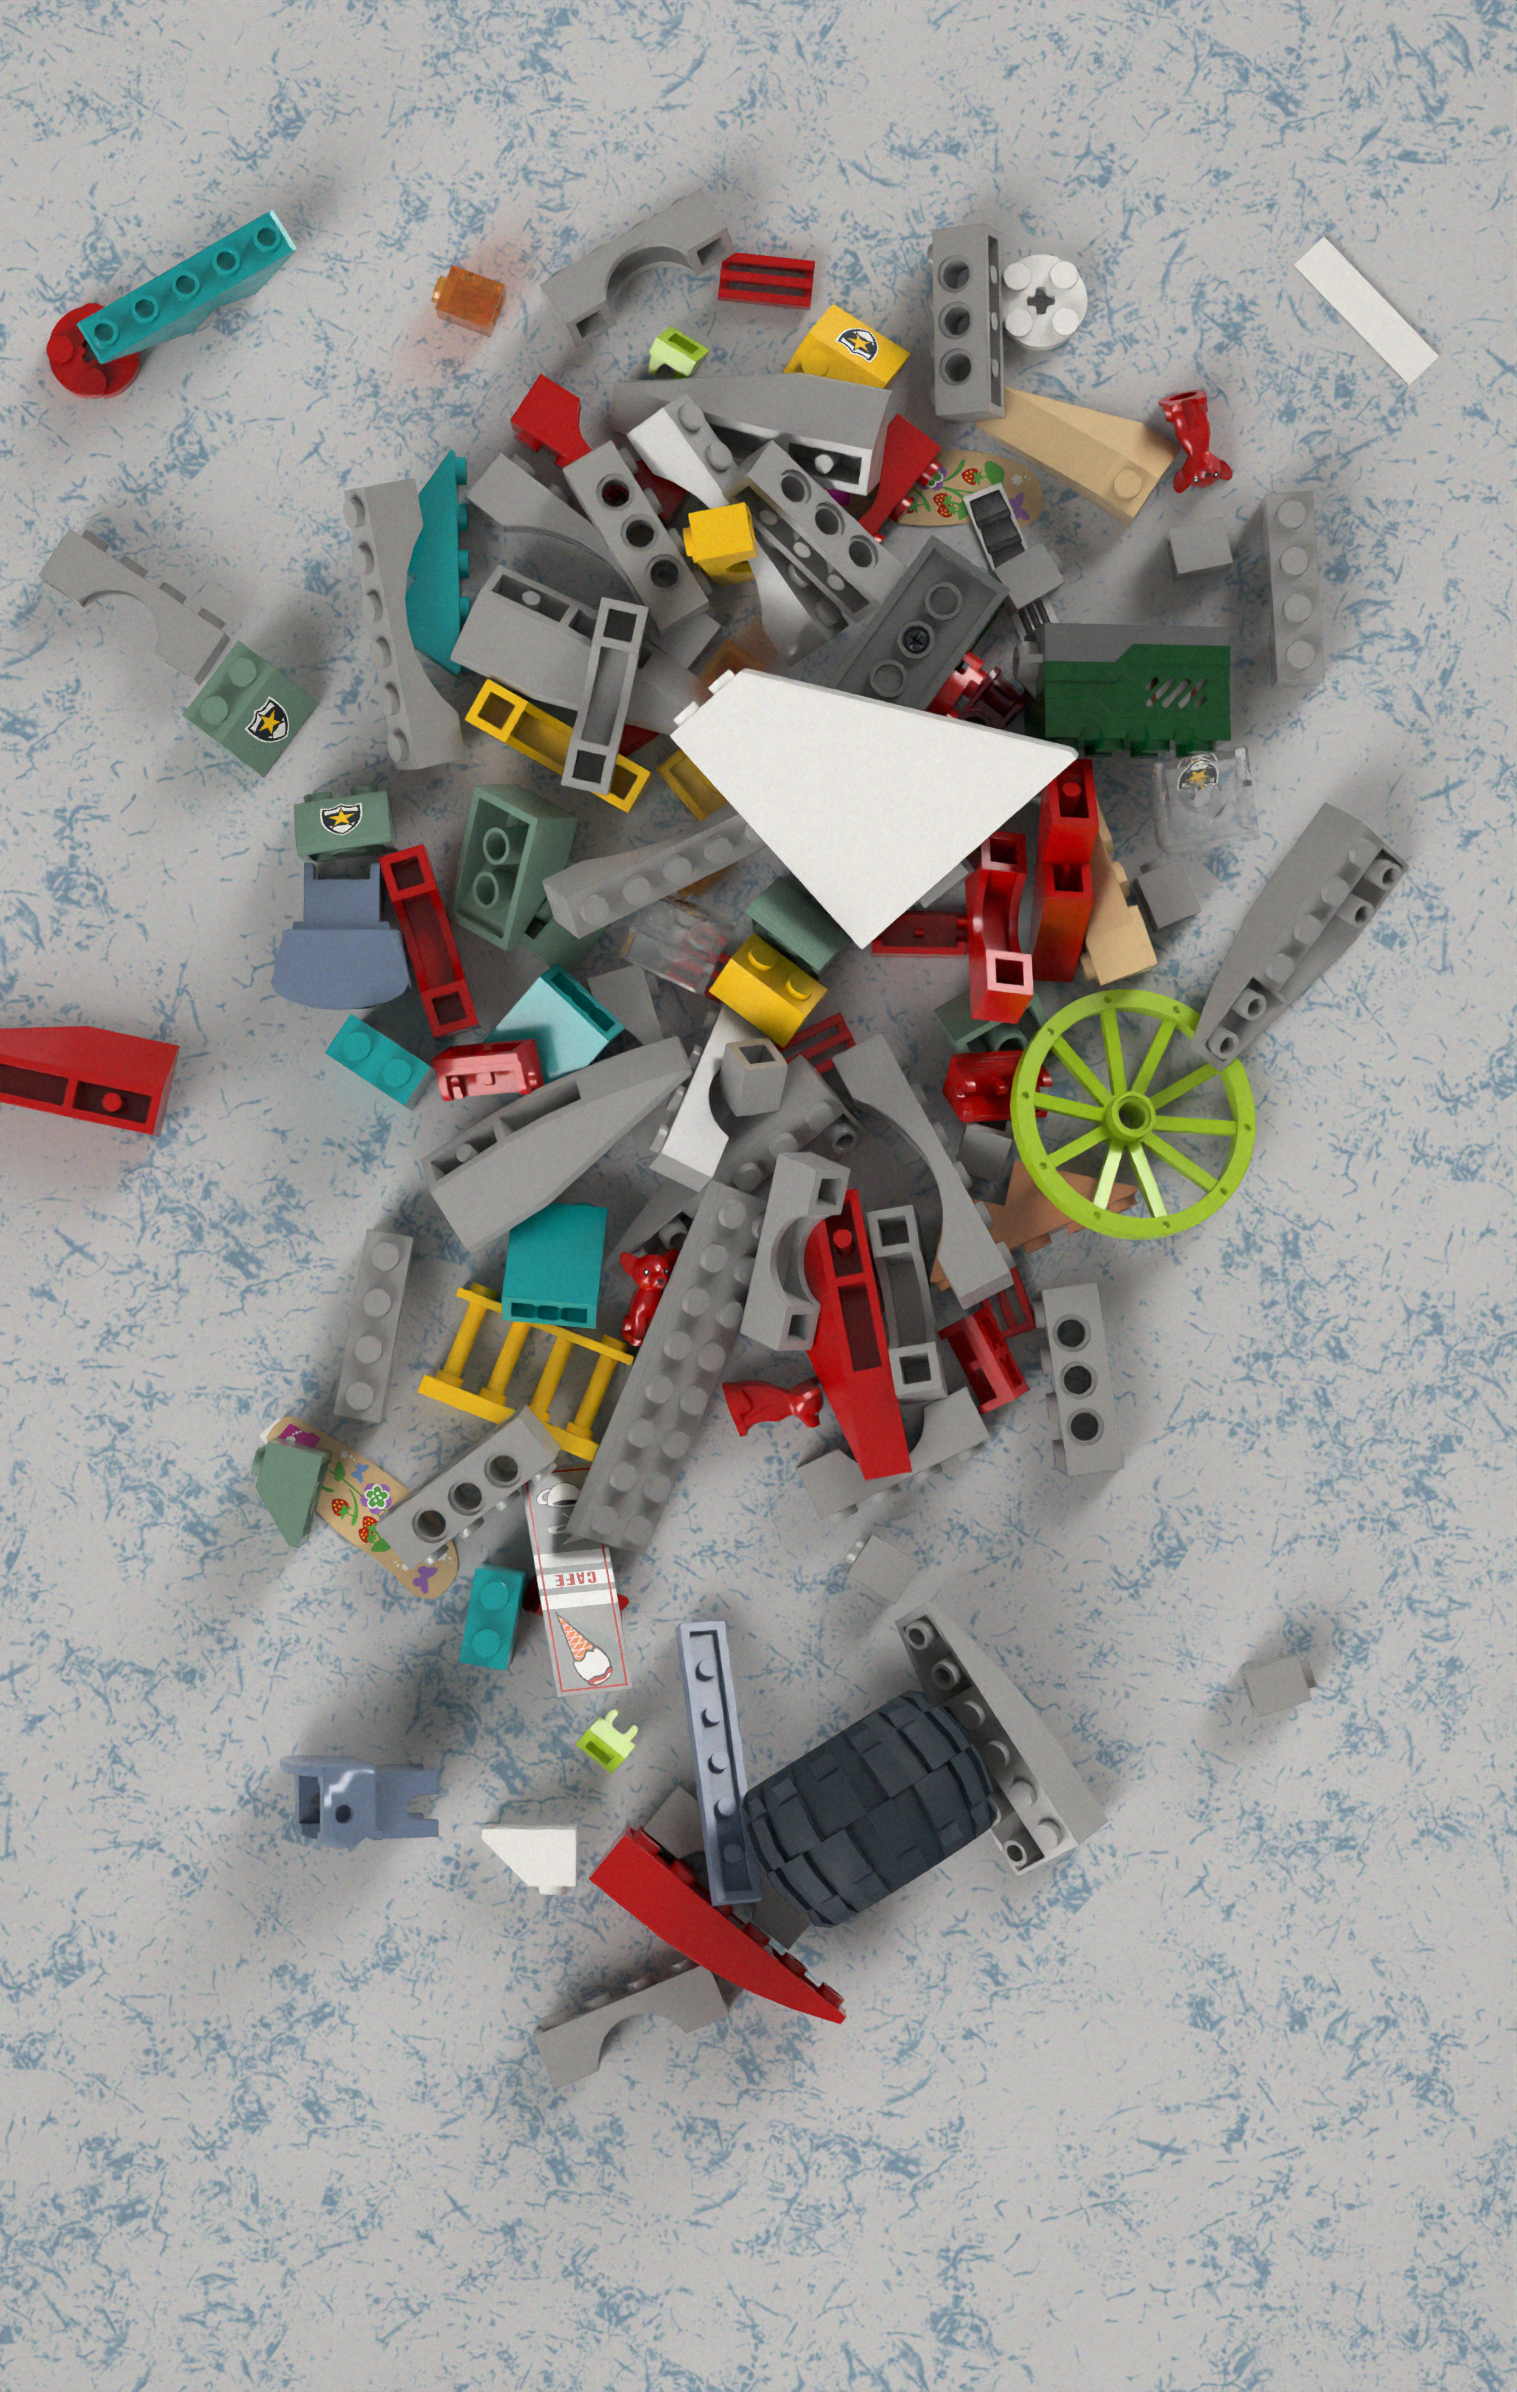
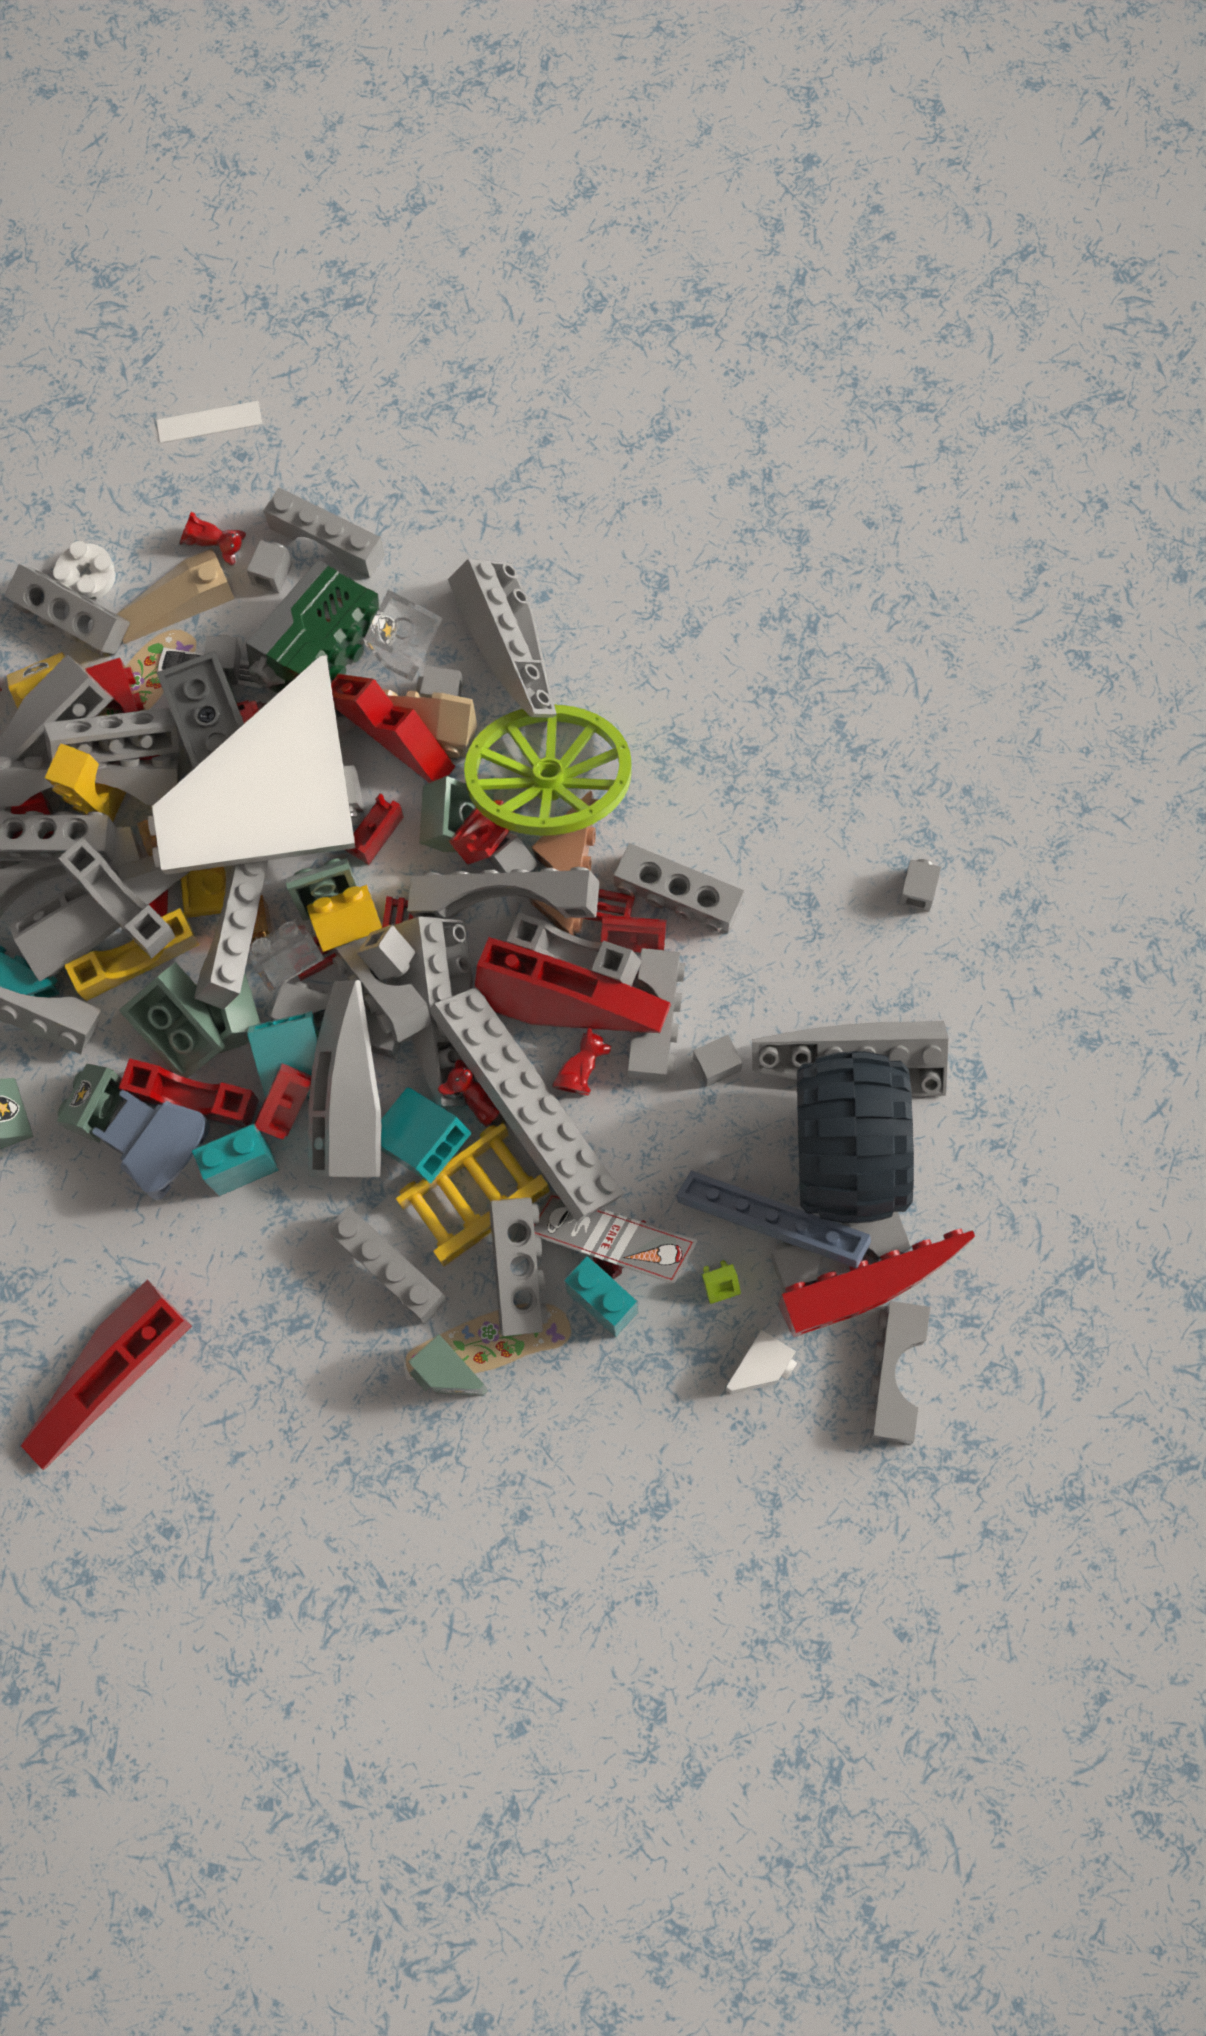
camera: 55 degrees left, 15 degrees down
(359, 1799) = (664, 1435): sand blue piece -> none
(779, 1302) = (473, 967): light grey arch -> none
(997, 967) = (421, 785): red arch -> none

